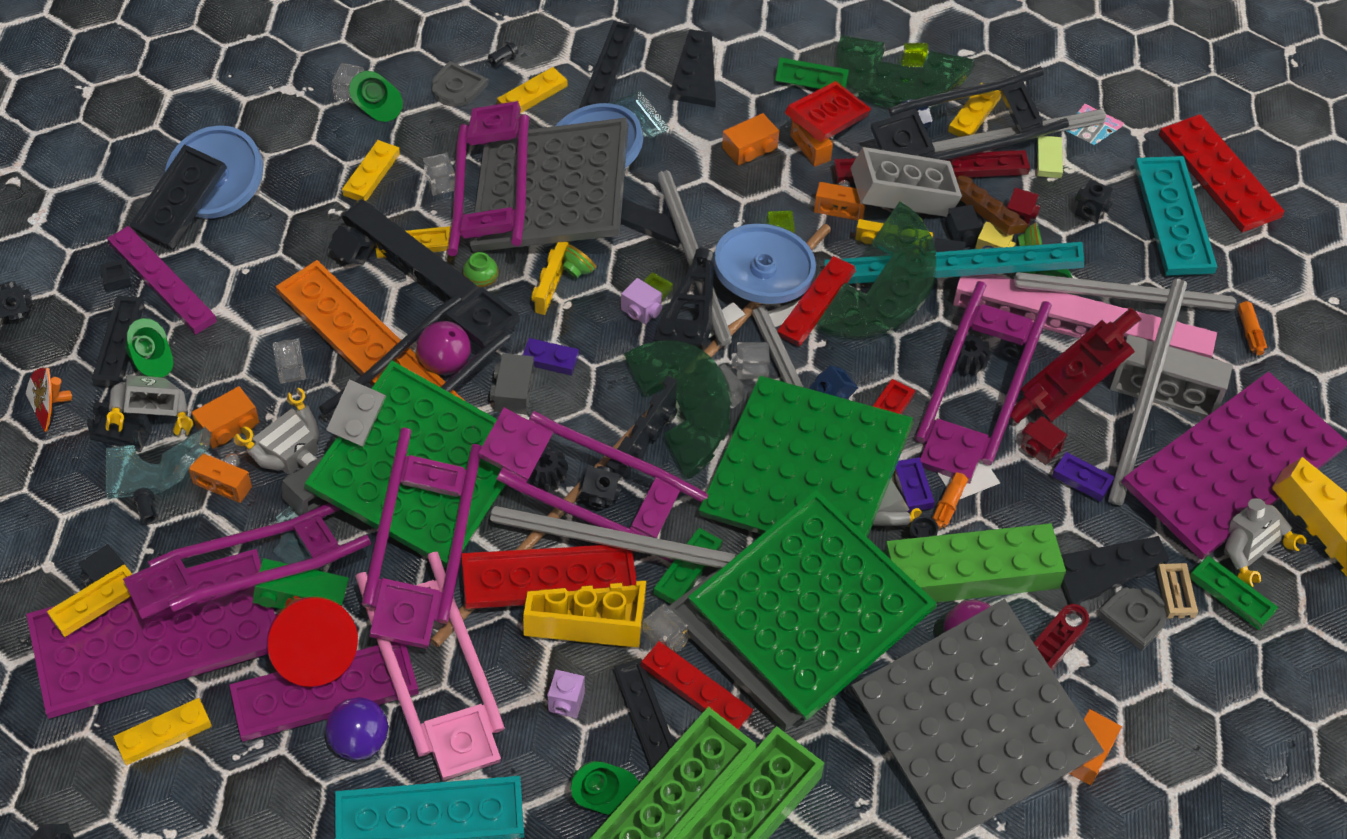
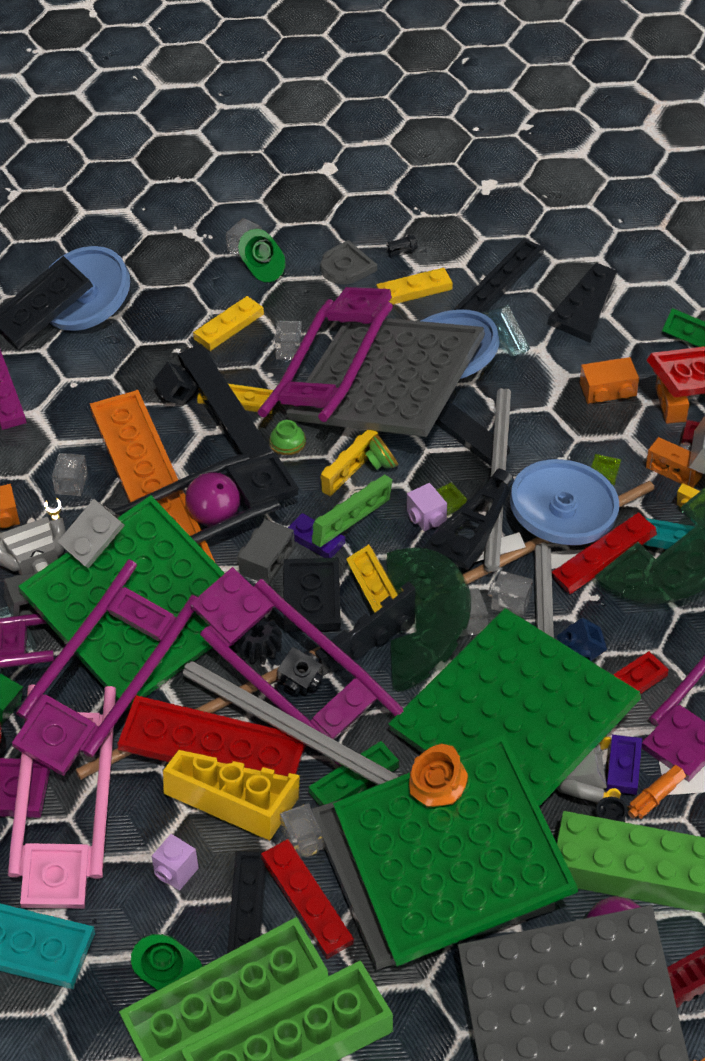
camera: 25 degrees right, 5 degrees down
(575, 327) = (351, 510): none -> bright green plate
(575, 406) = (313, 591): none -> black plate
(624, 382) = (371, 576): none -> yellow plate
(775, 544) = (438, 776): none -> orange hat

